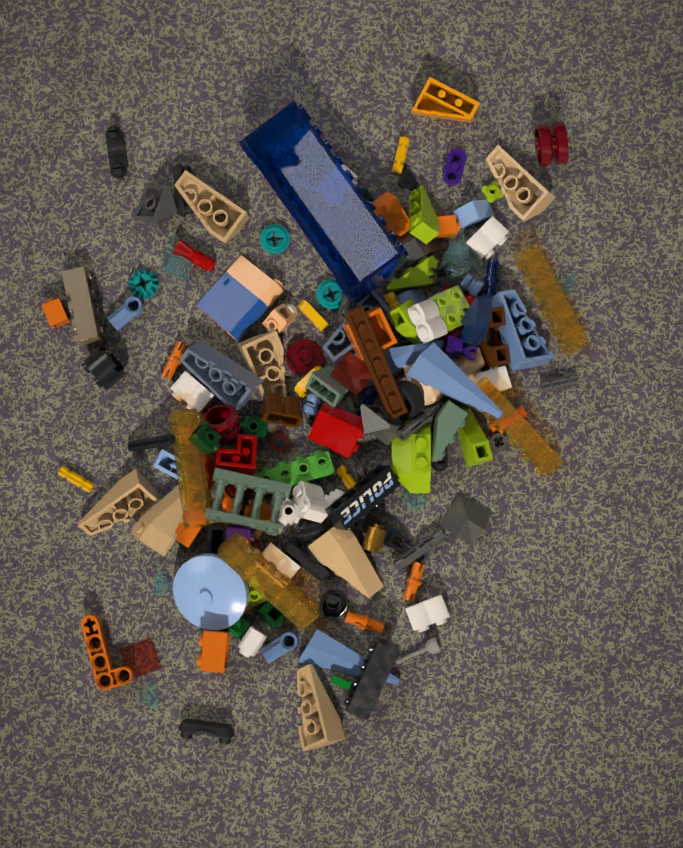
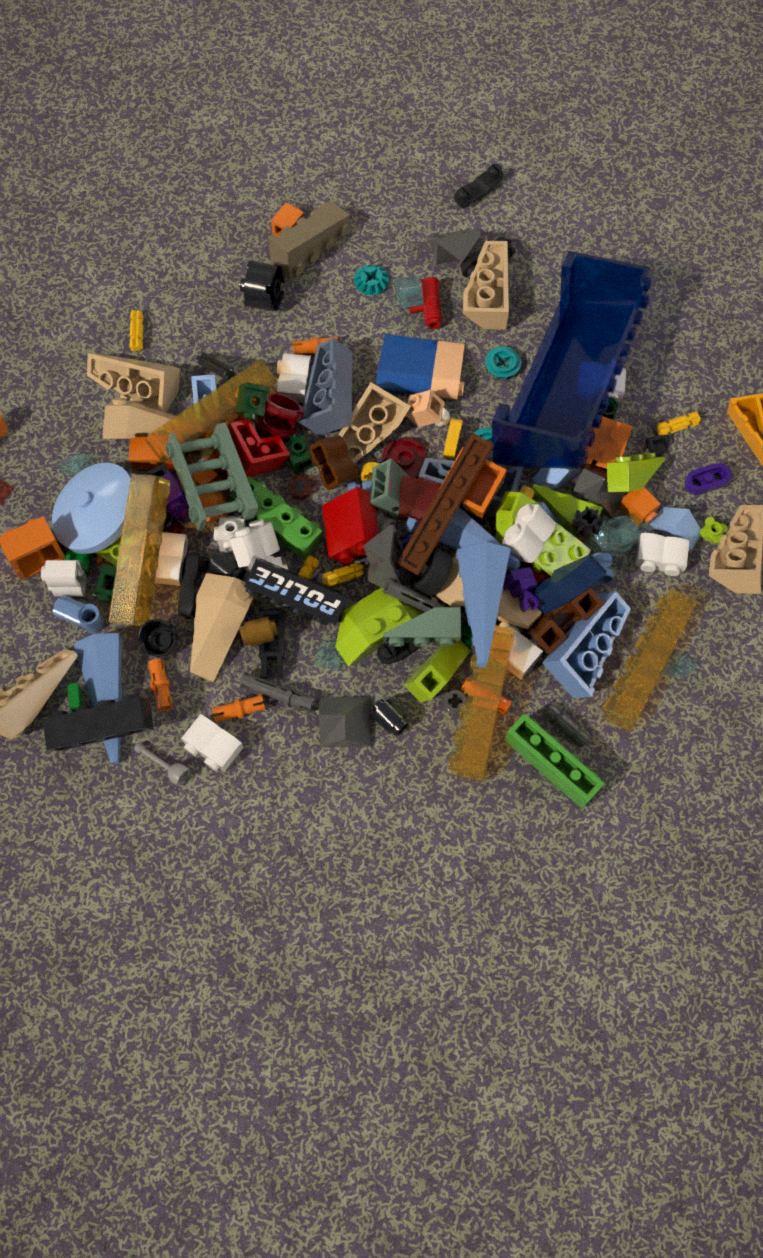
camera: 55 degrees right, 15 degrees down
(124, 314) = (338, 279): medium blue piece -> none
(367, 456) = (342, 575): none -> yellow axle
(483, 489) = (390, 717): none -> black brick
(491, 277) = (625, 585): clear blue pin -> none
(577, 409) = (553, 760): none -> bright green brick

